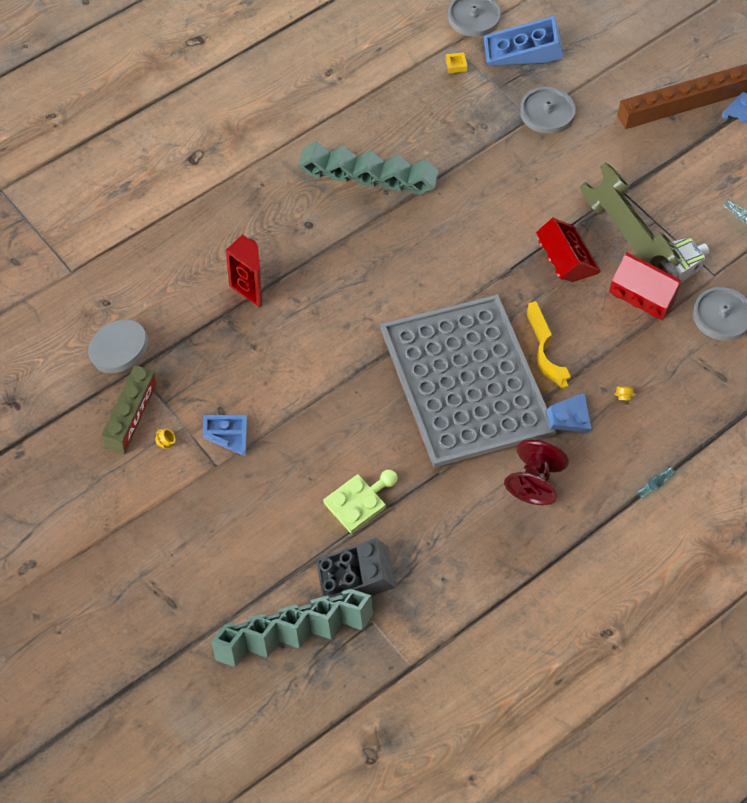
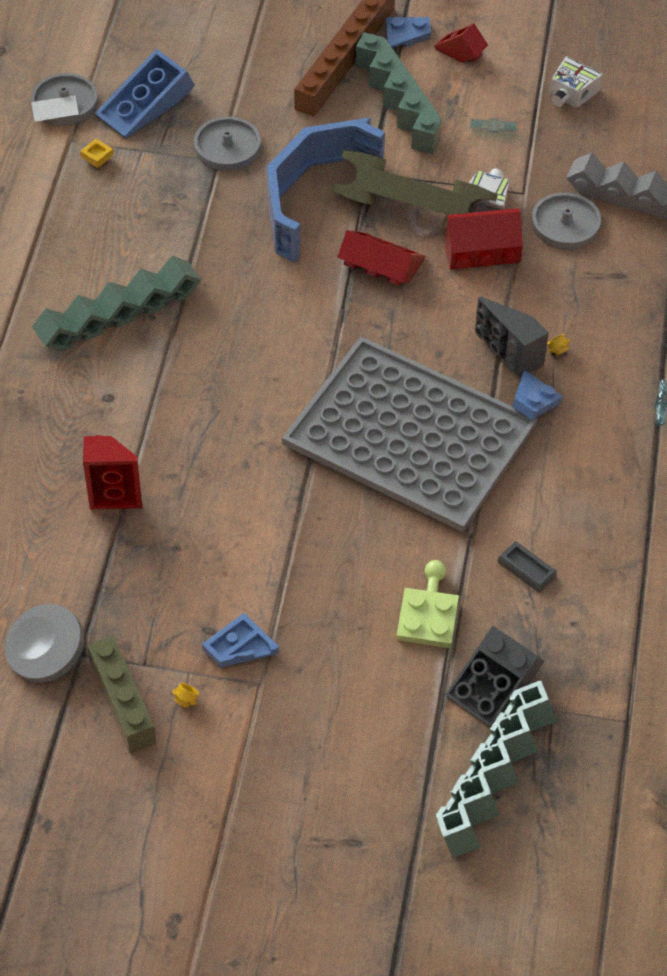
camera: 40 degrees left, 5 degrees down
(451, 520) = (527, 566): none -> dark grey tile
(459, 16) = (55, 108): none -> white sticker
(540, 461) = (572, 475): dark red piece -> none
(553, 372) = (438, 345): yellow piece -> none
(573, 149) = (310, 148): none -> medium blue panel
(593, 365) = (511, 335): none -> dark grey slope
(694, 149) = (400, 91): none -> sand green brick

